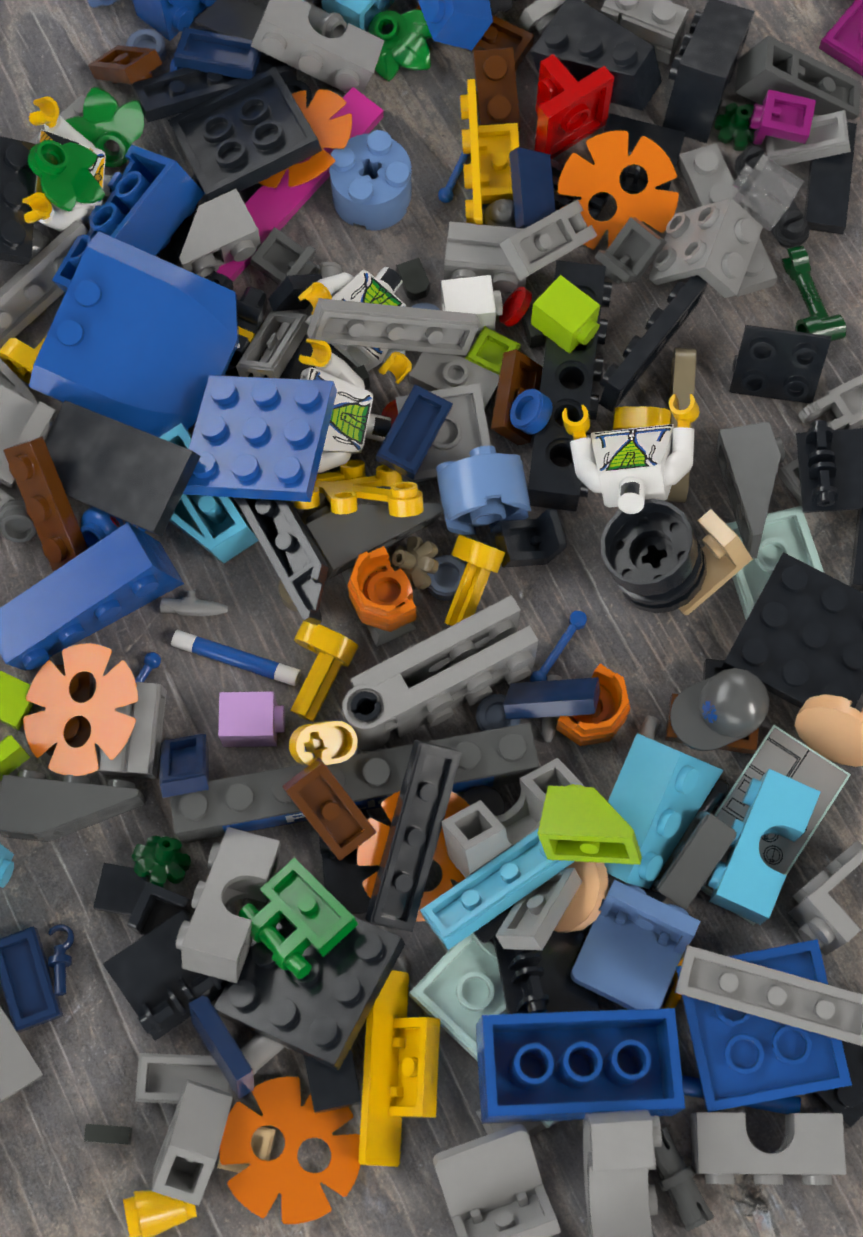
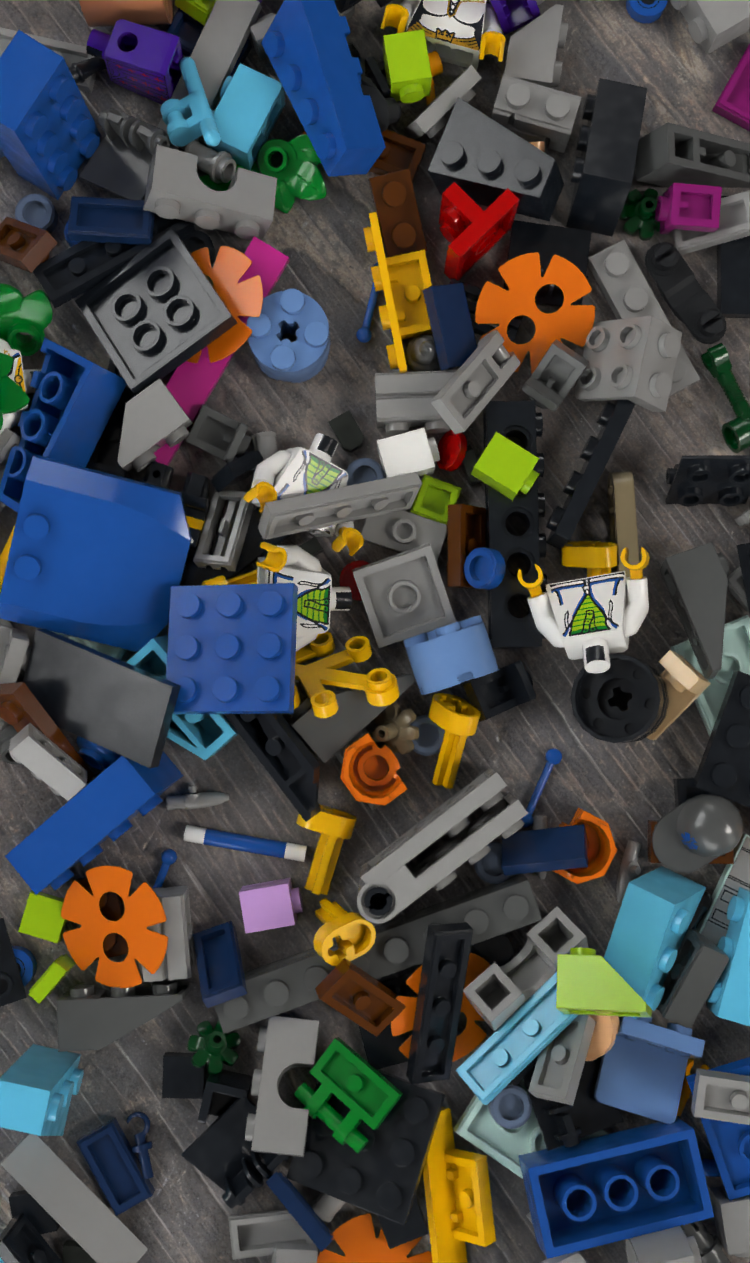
camera: 10 degrees left, 15 degrees up
(48, 522) = (48, 762): none -> light grey piece
(413, 431) = (376, 607): dark blue tile -> none
(475, 971) = (511, 1107): none -> sand blue tile
(766, 191) = (682, 297): clear brick -> none

